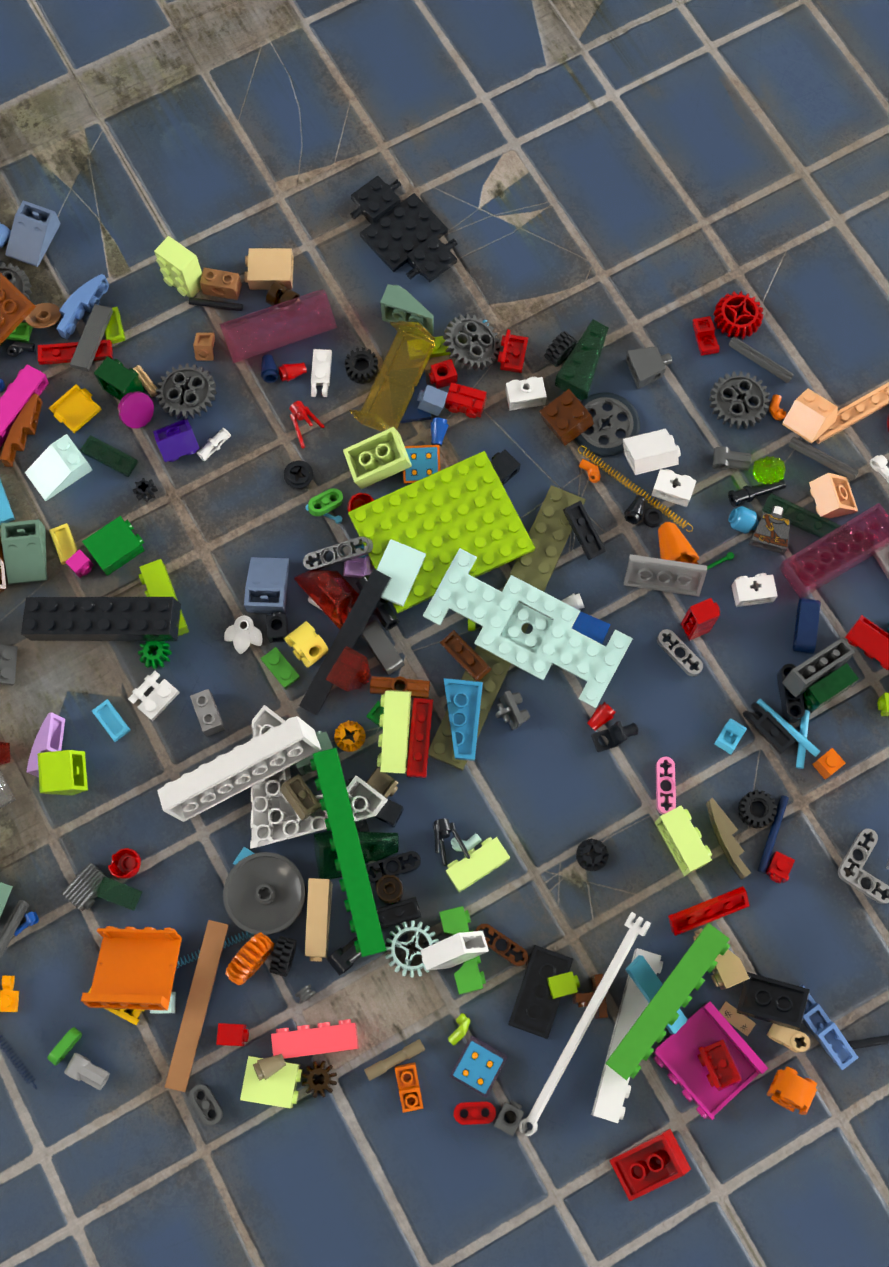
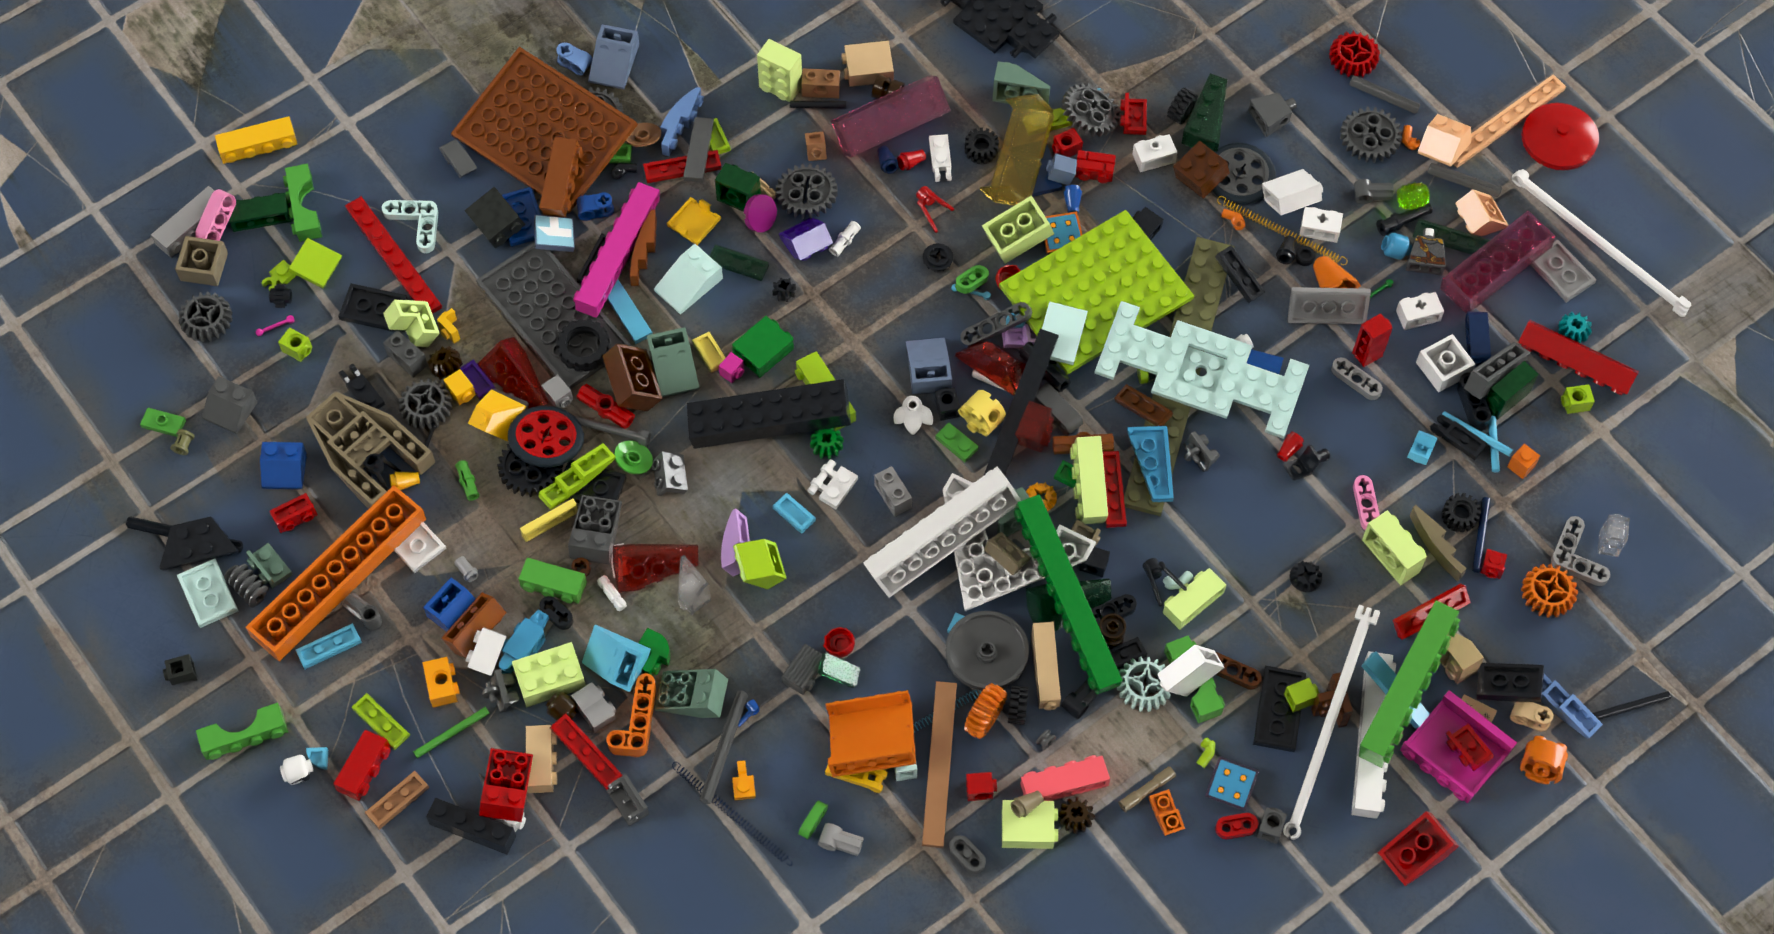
camera: 10 degrees left, 10 degrees down
(705, 336) = (1324, 78): red slope -> none
(769, 650) = (1445, 362): none -> white brick
(839, 891) = (1533, 587): none -> orange gear

